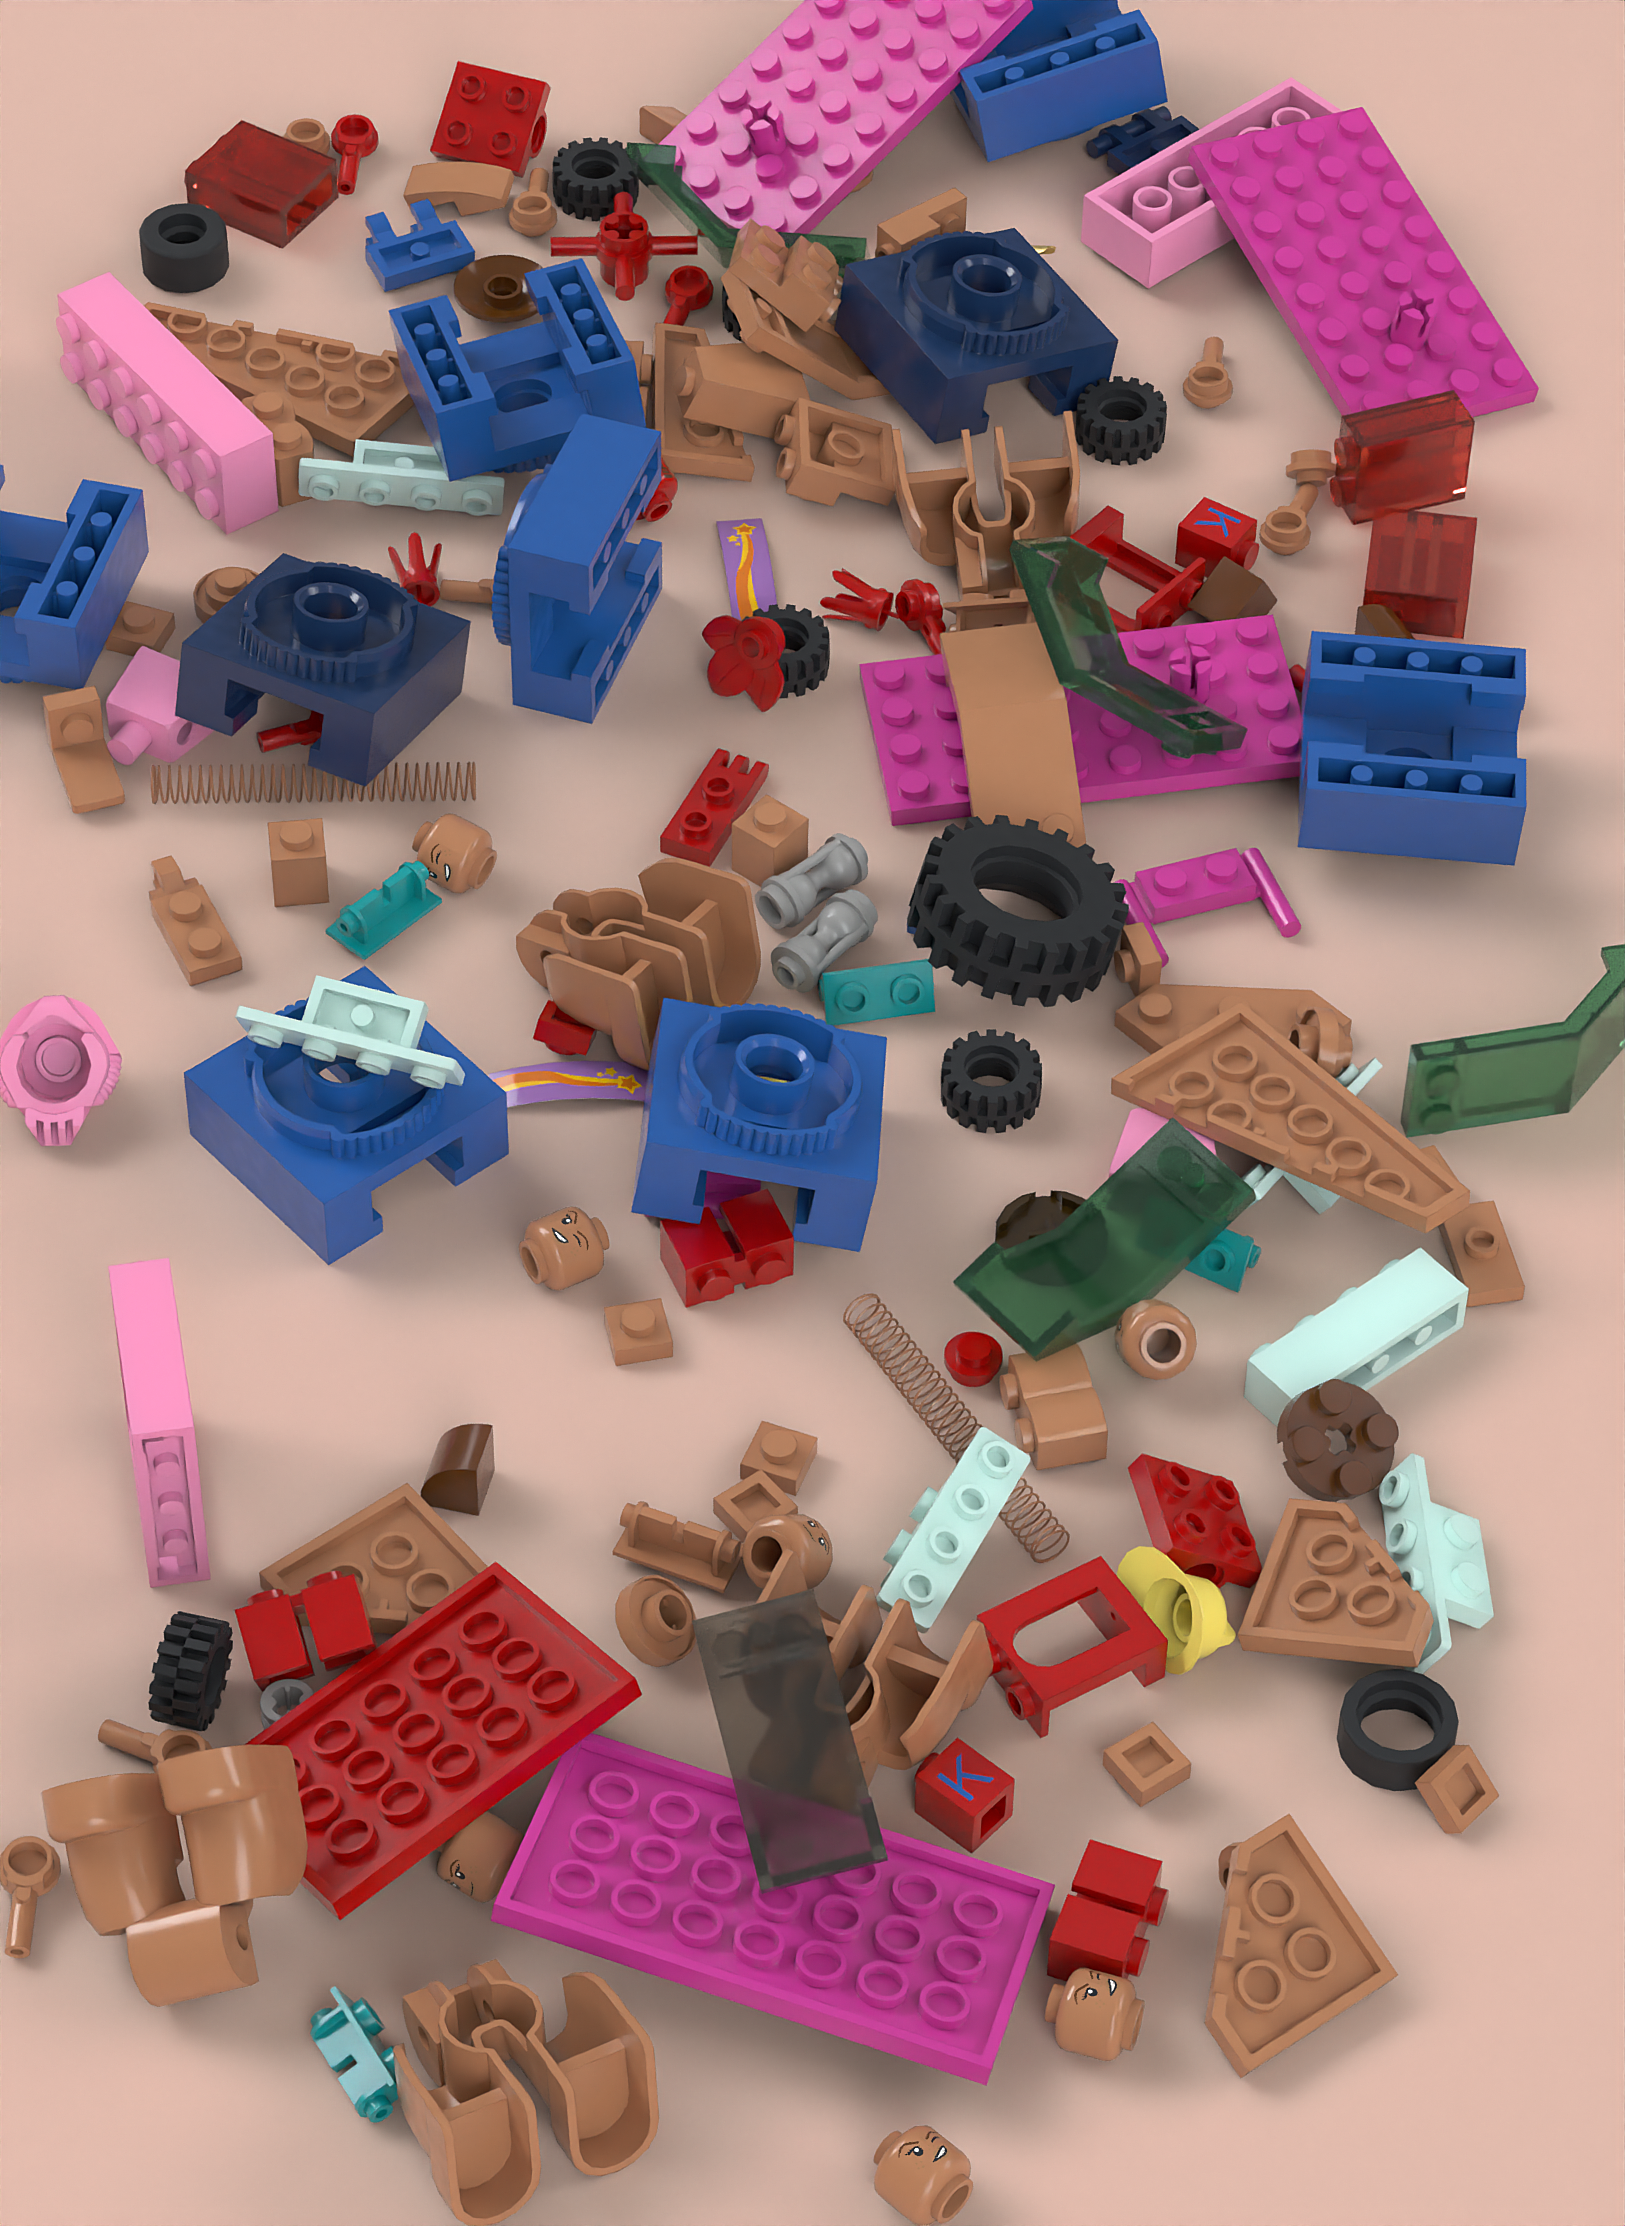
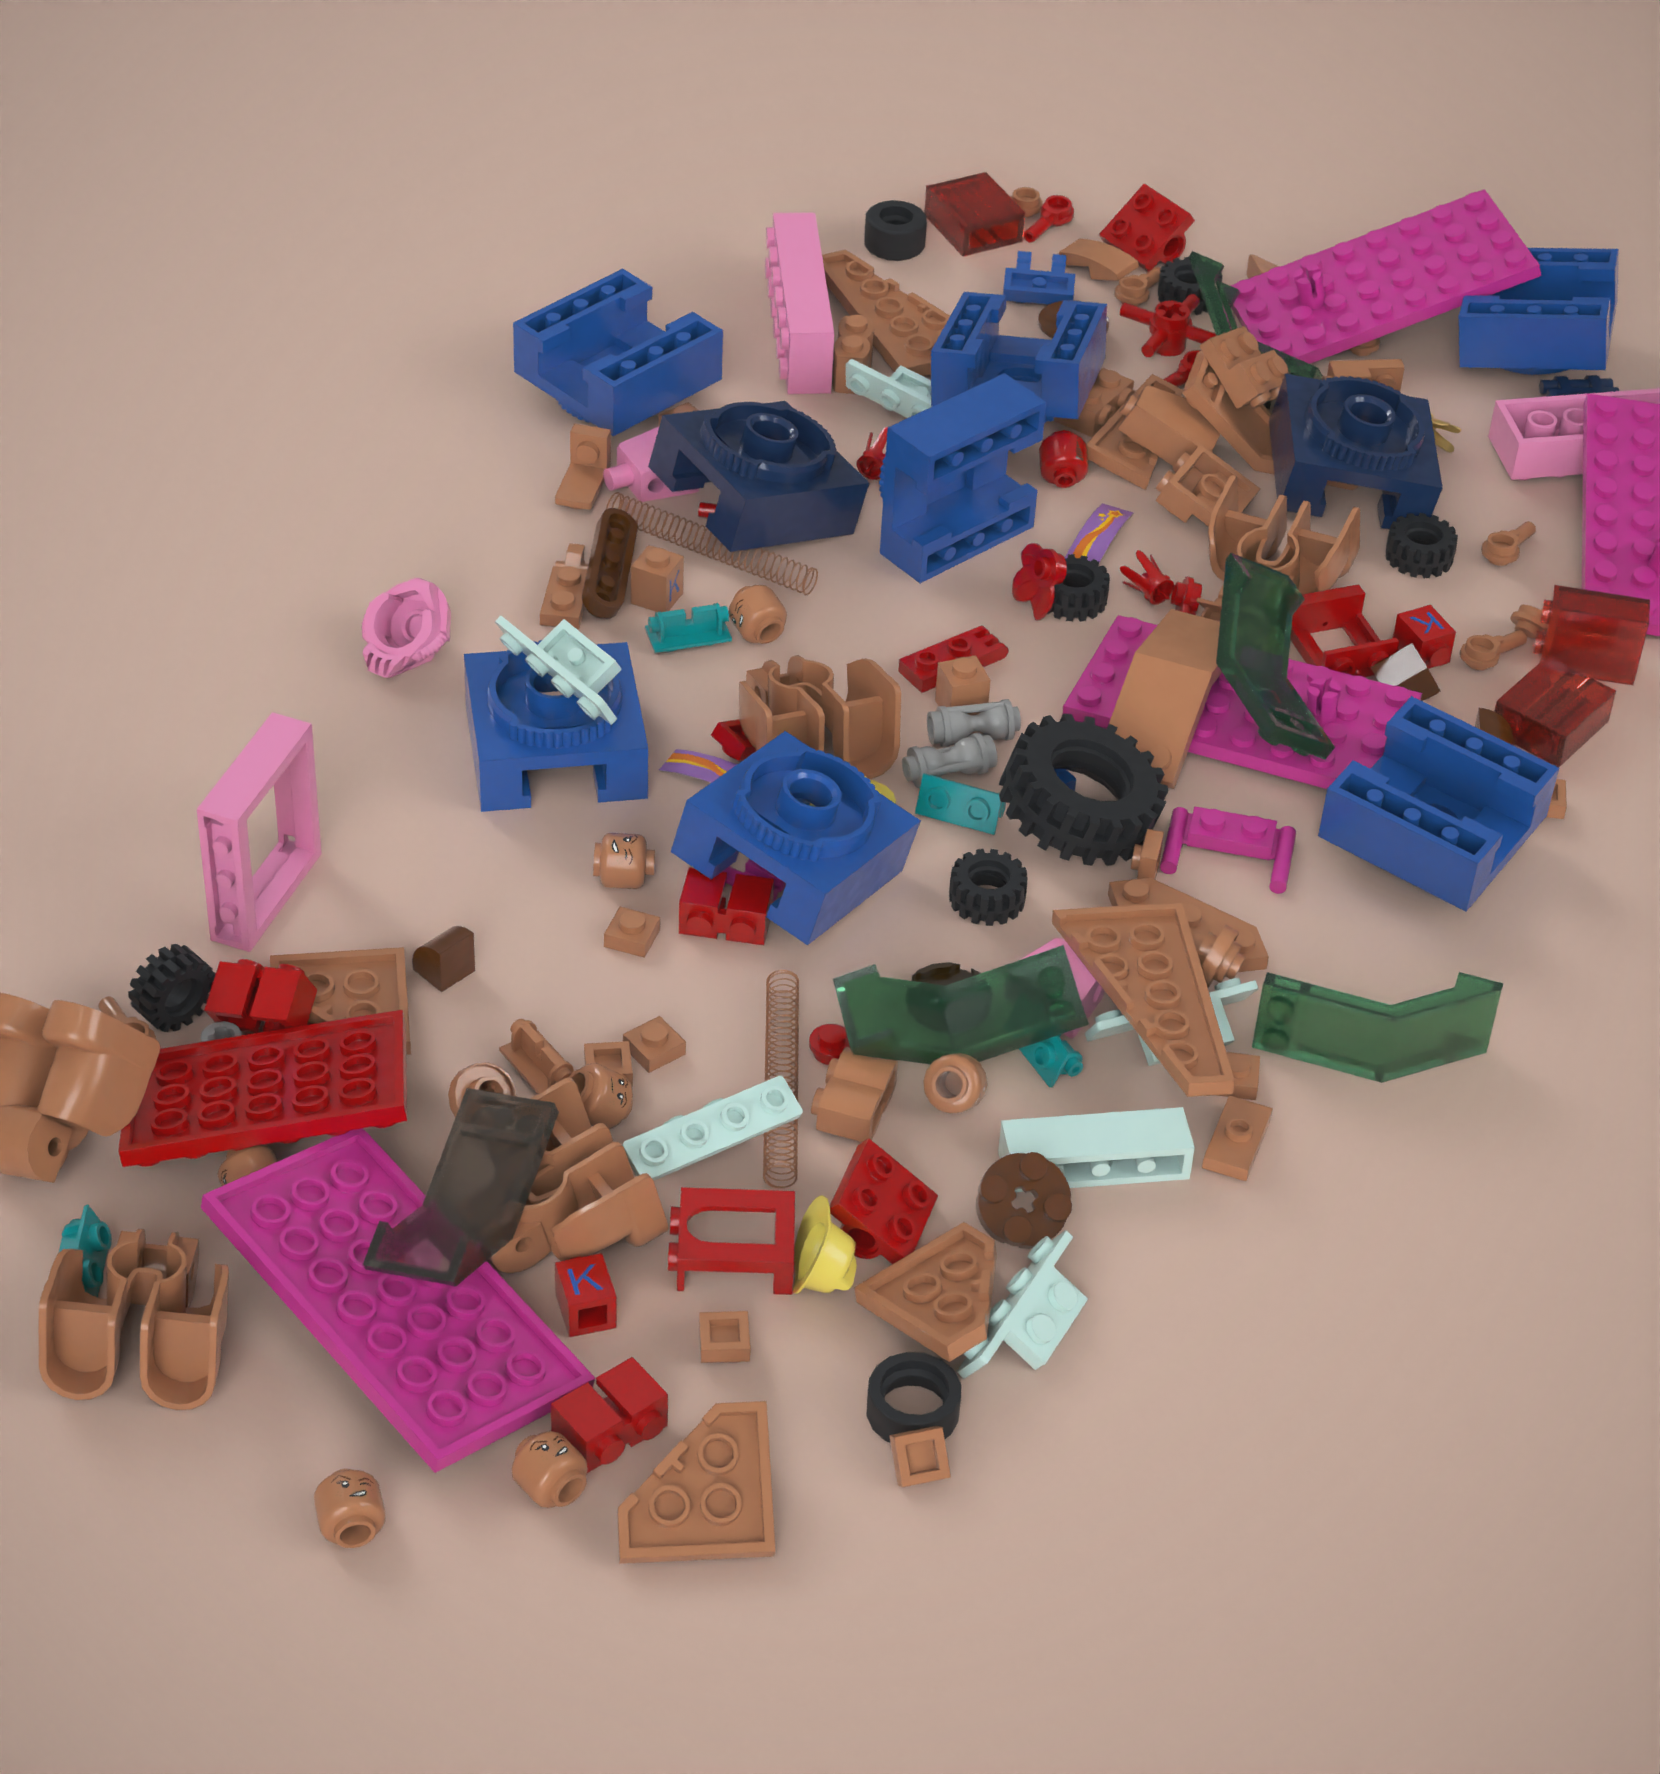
camera: 30 degrees right, 5 degrees down
(219, 865) = (609, 563): none -> reddish brown plate

